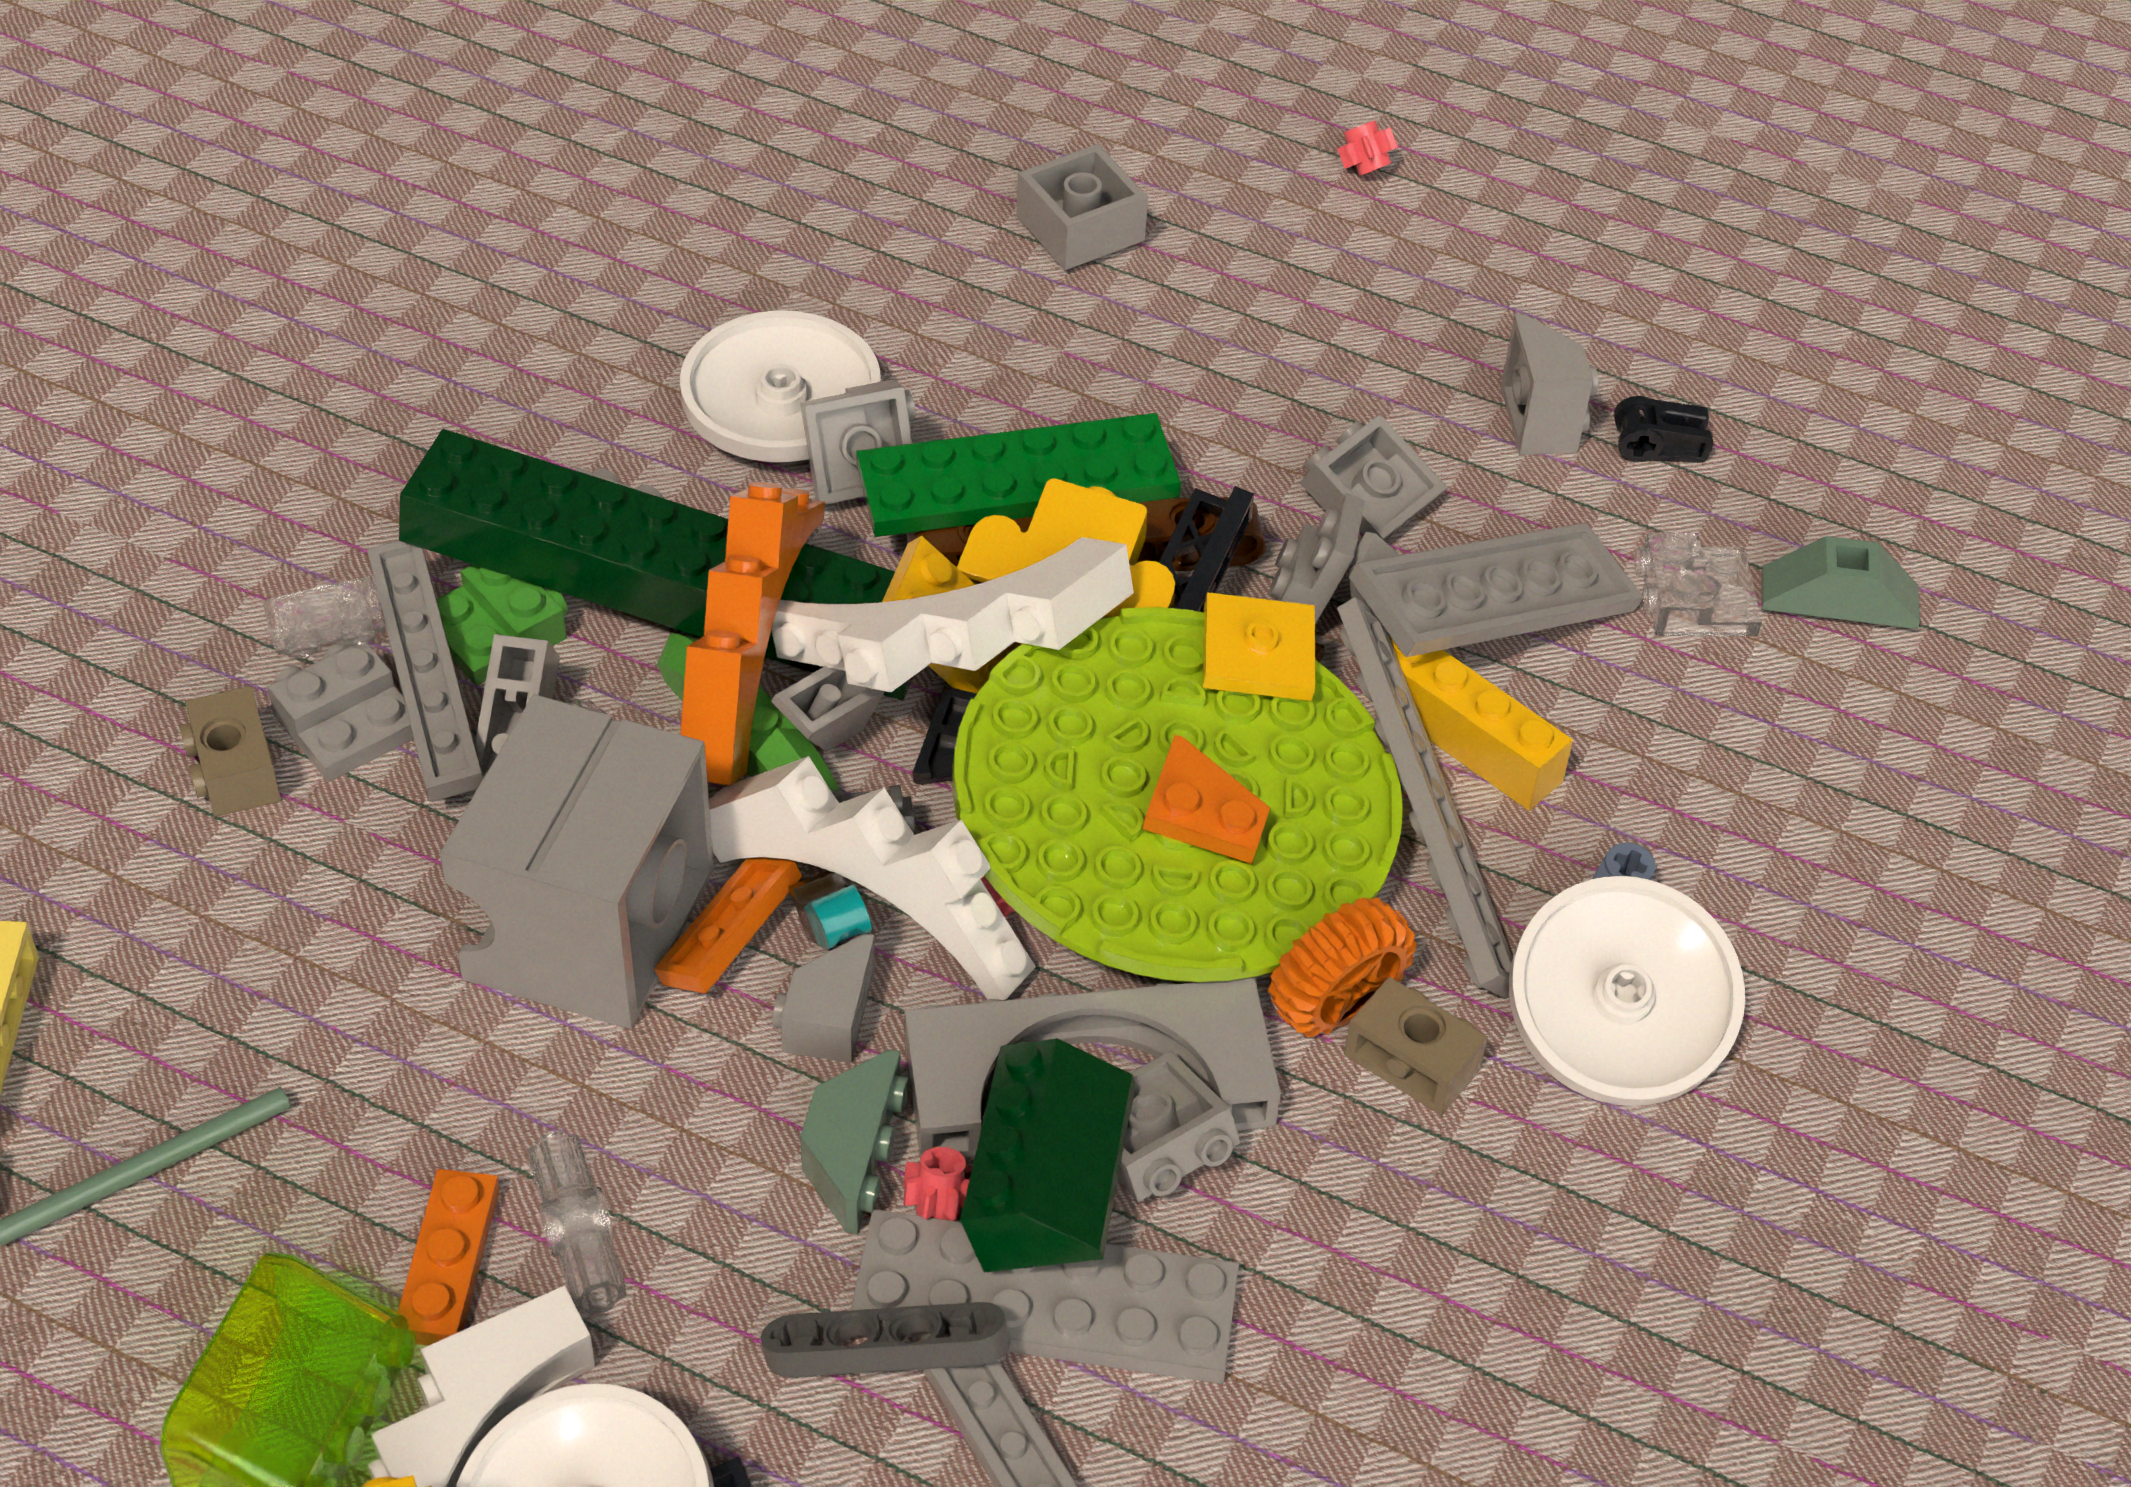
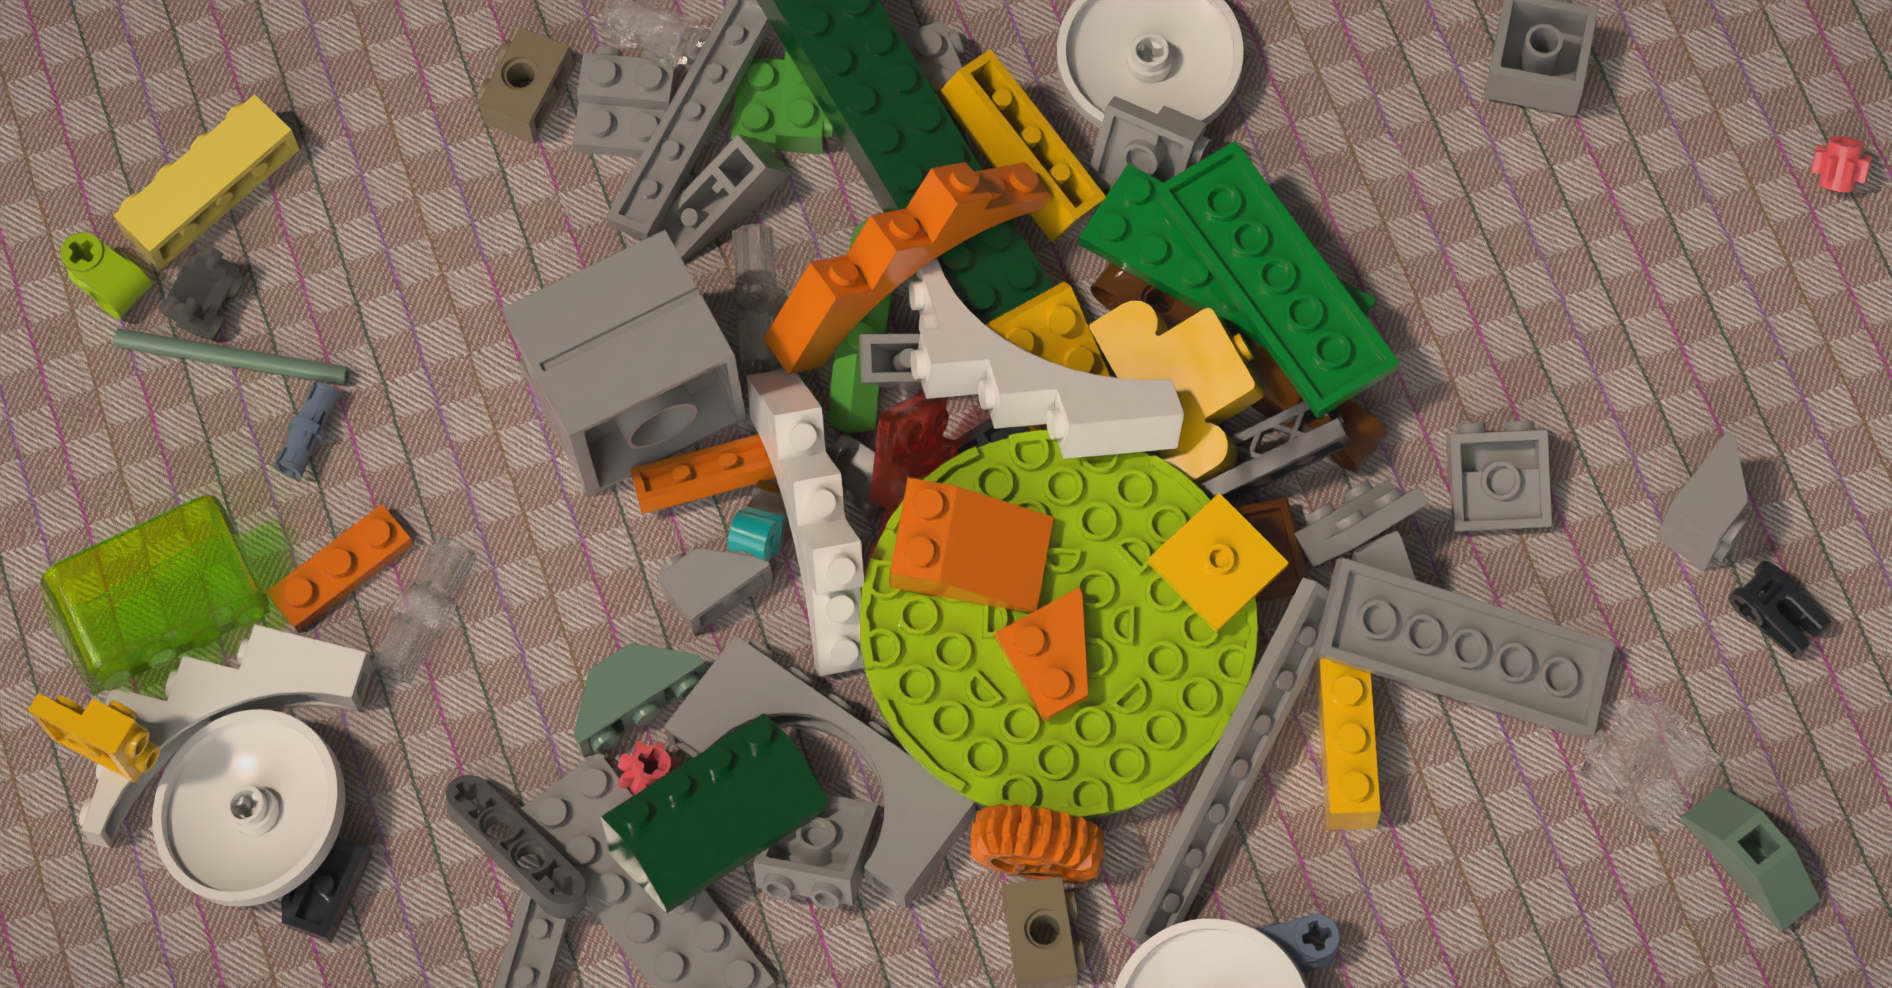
camera: 50 degrees right, 20 degrees up
(56, 1126) = (200, 291): none -> dark grey piece
(293, 1165) = (306, 430): none -> sand blue pin
(708, 475) = (1014, 131): none -> yellow brick
(919, 767) = (909, 446): none -> clear red plate
(1047, 768) = (969, 547): none -> orange slope
(1074, 434) = (1277, 279): none -> green plate

